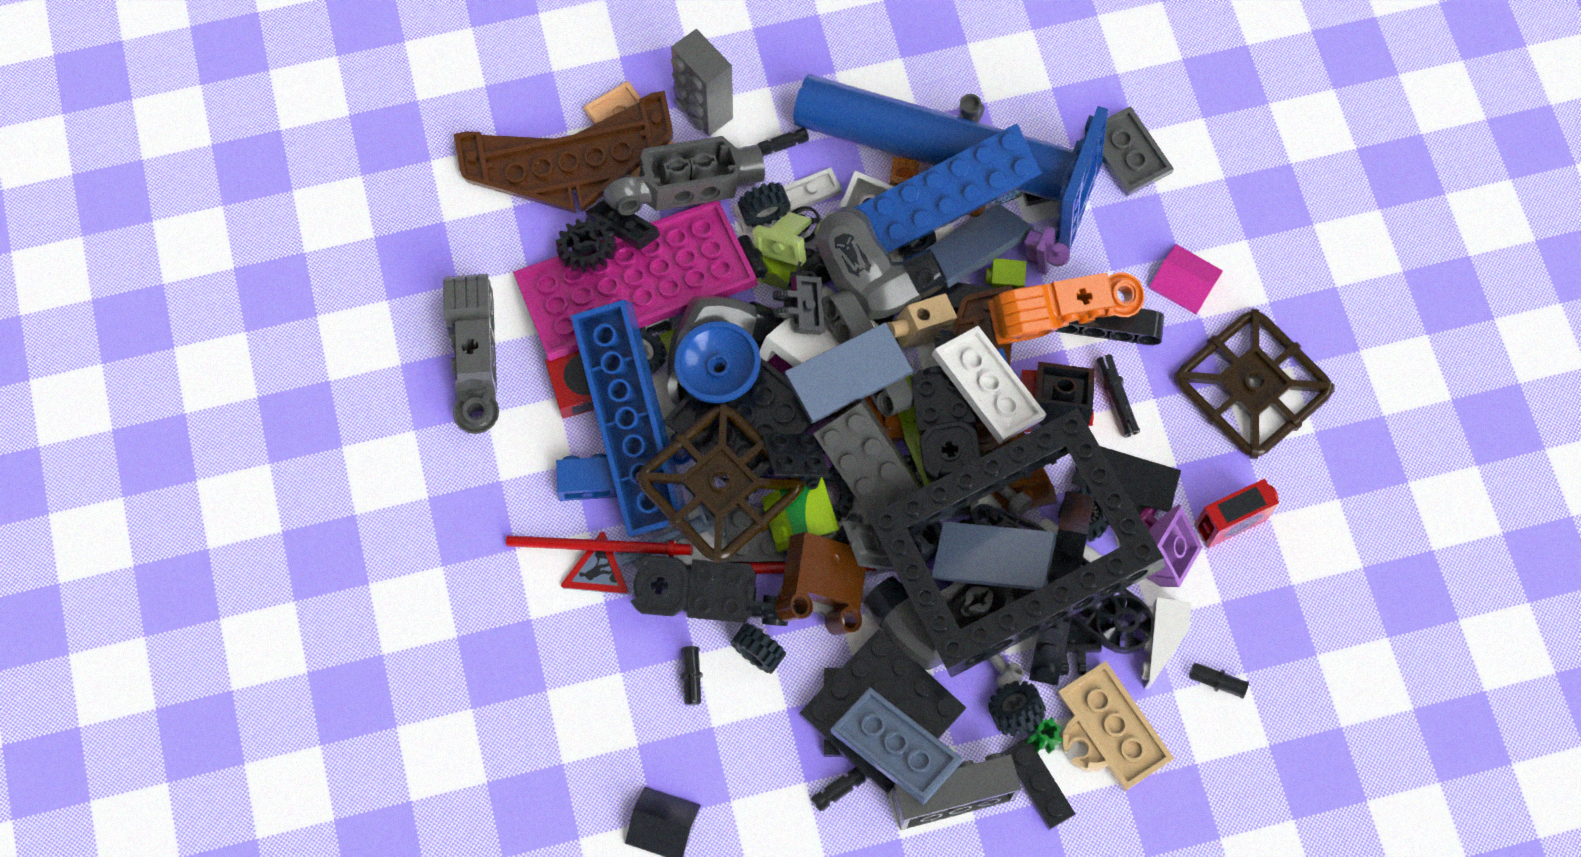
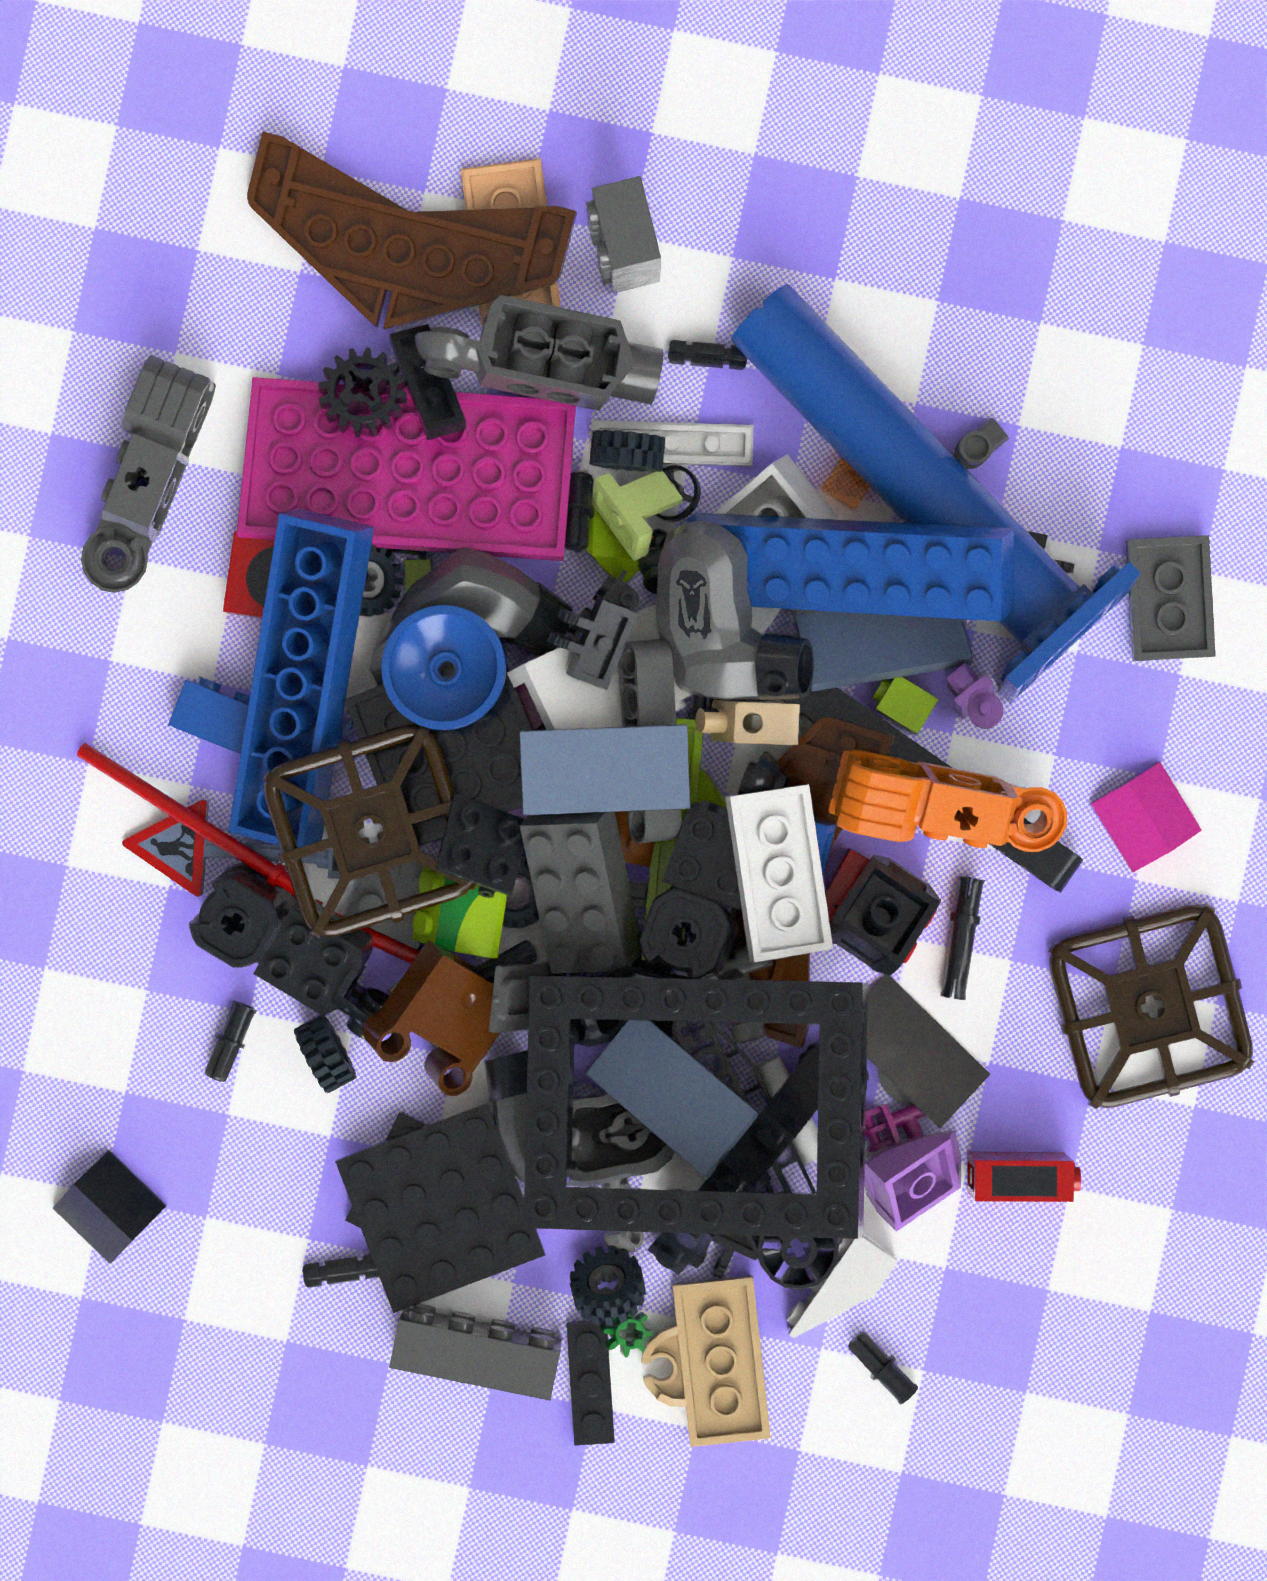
camera: 30 degrees right, 20 degrees up
(896, 745) = (426, 1271): sand blue tile -> none

